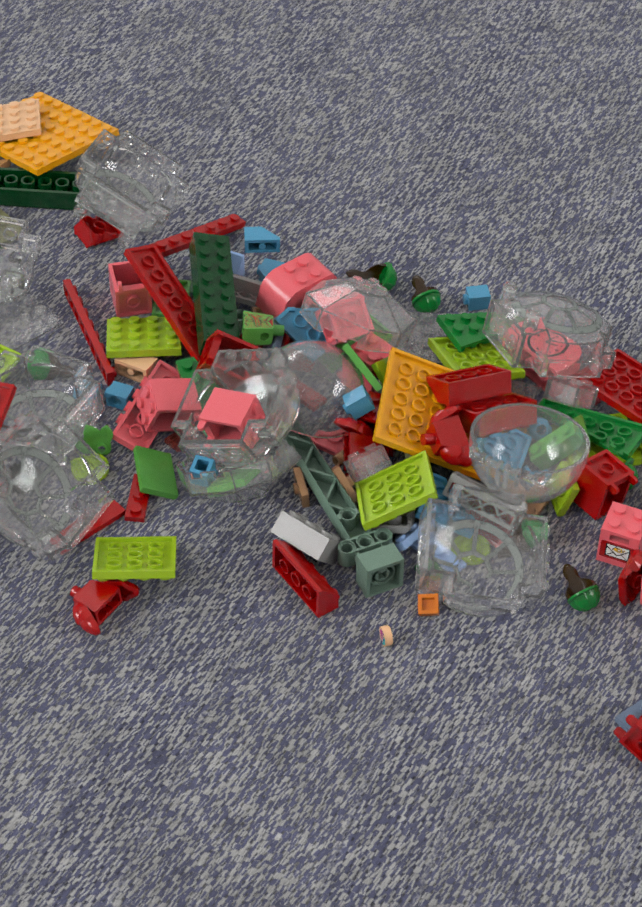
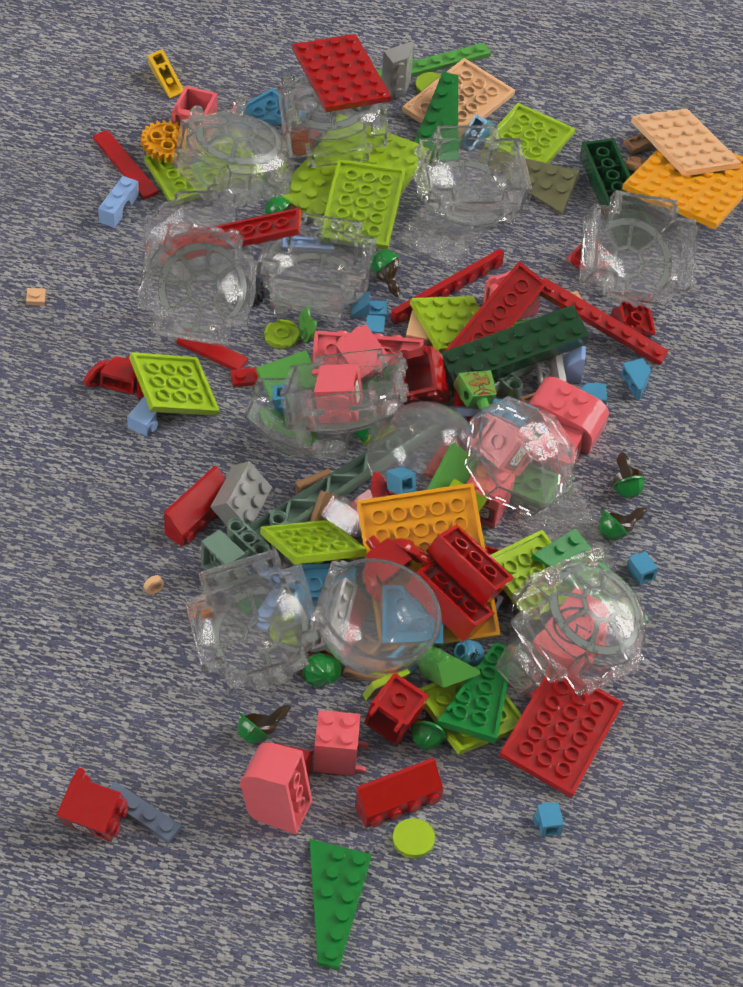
camera: 70 degrees right, 5 degrees up
(160, 595) = (142, 419): none -> light blue slope
(185, 221) = (637, 318): none -> red slope

